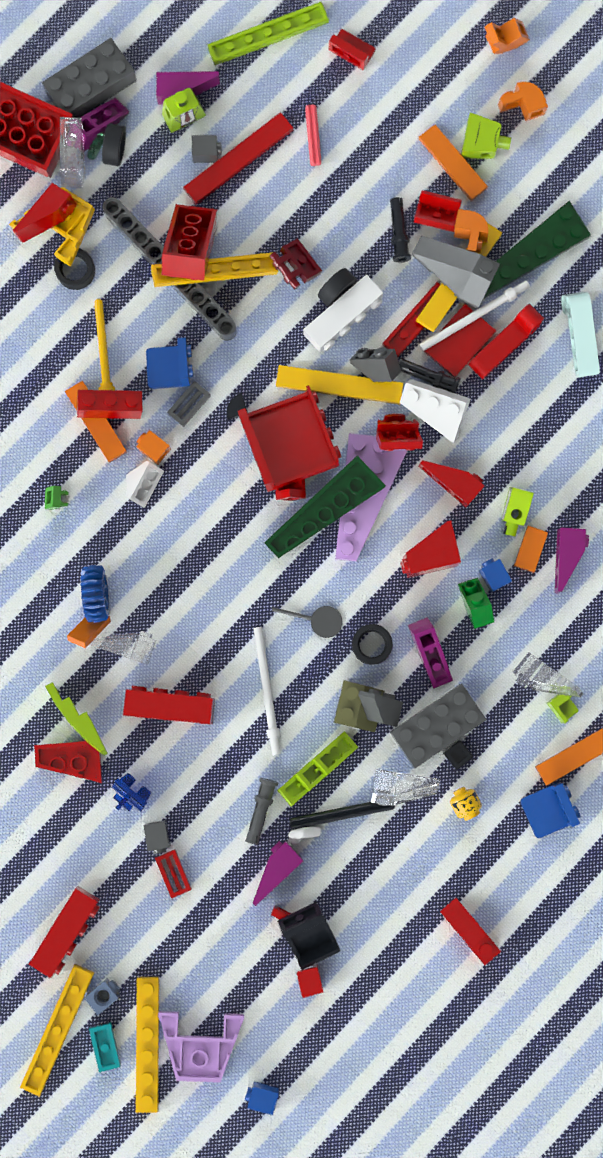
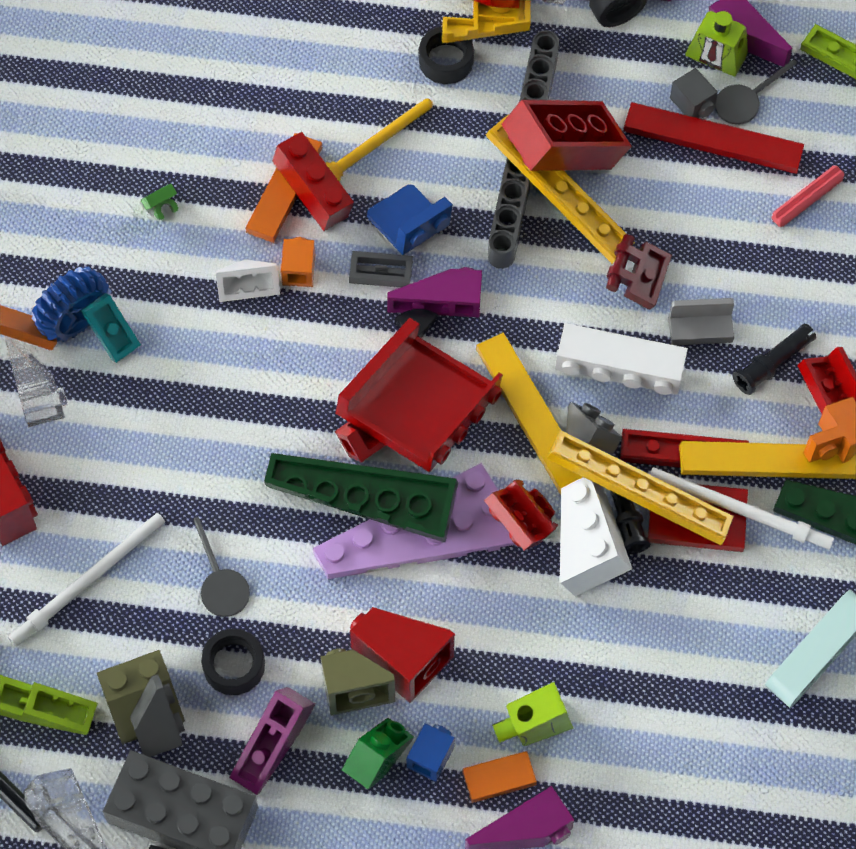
camera: 55 degrees right, 20 degrees down
(123, 580) = (110, 327): none -> teal plate
(225, 125) = (740, 103): none -> dark grey piece
(234, 377) = (446, 293): none -> magenta slope
(336, 286) = (647, 323): black tyre -> none
(350, 252) = (701, 321): none -> light grey panel
(430, 361) = (640, 487): none -> yellow tile
(431, 590) = (355, 682): none -> olive slope
(456, 482) = (517, 628): red slope -> none
(459, 269) = (780, 451): wedge -> none
(507, 341) = (739, 568): red beam -> none

